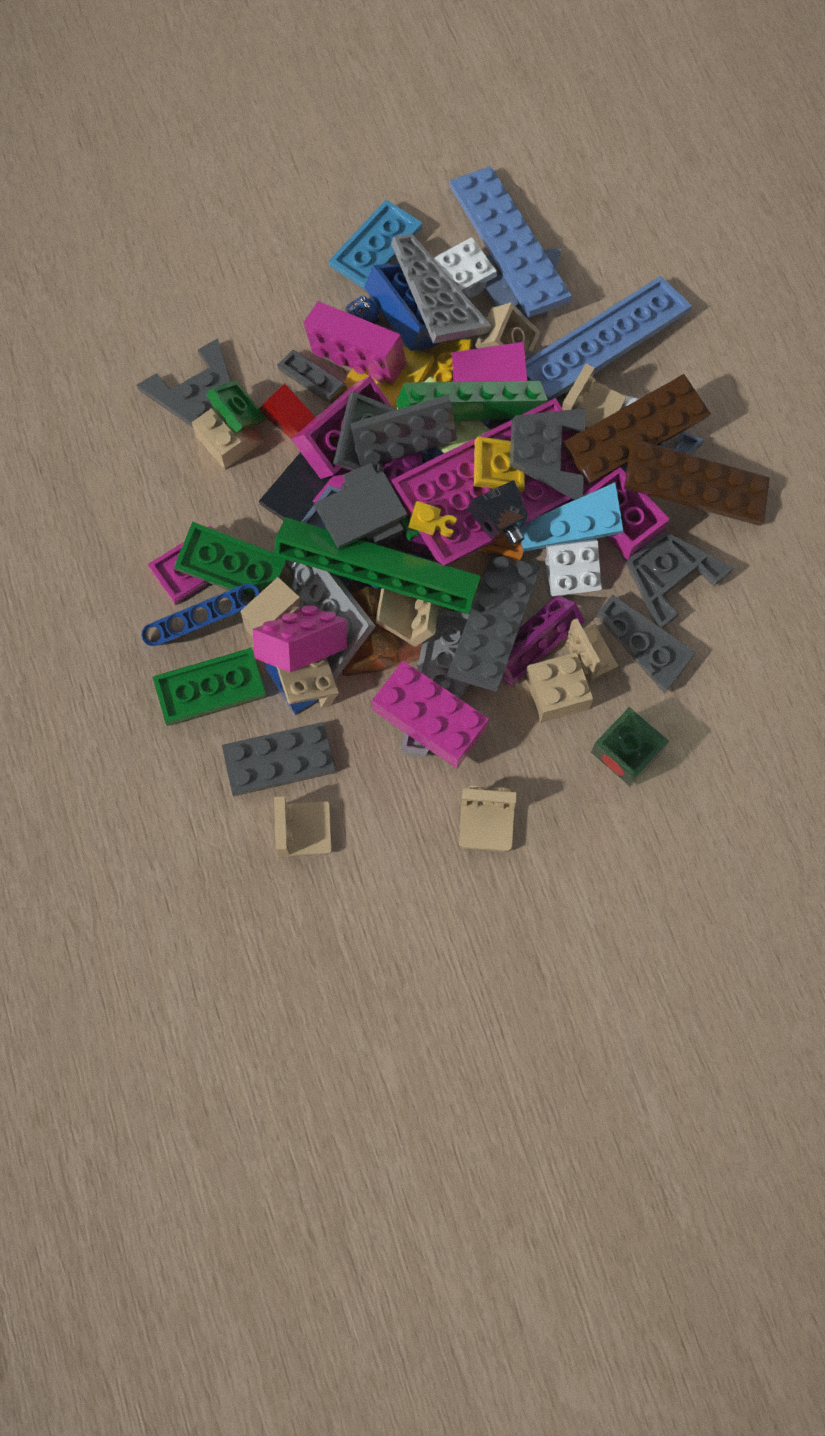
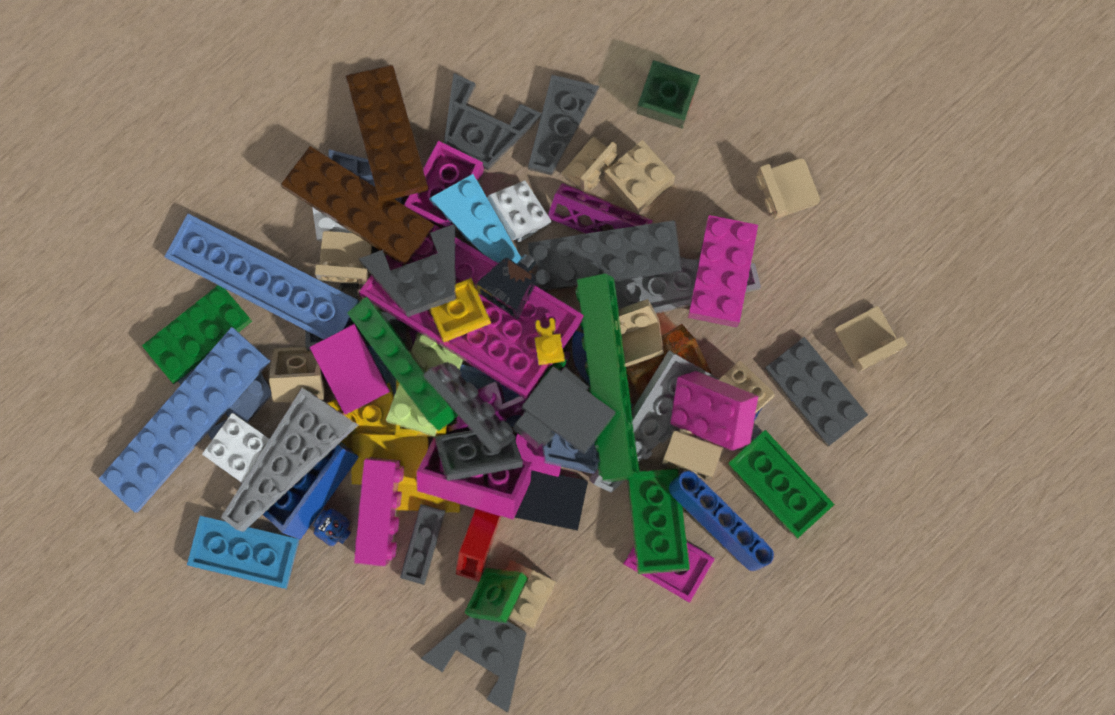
camera: 110 degrees left, 10 degrees up
(582, 274) = (195, 333): none -> green plate

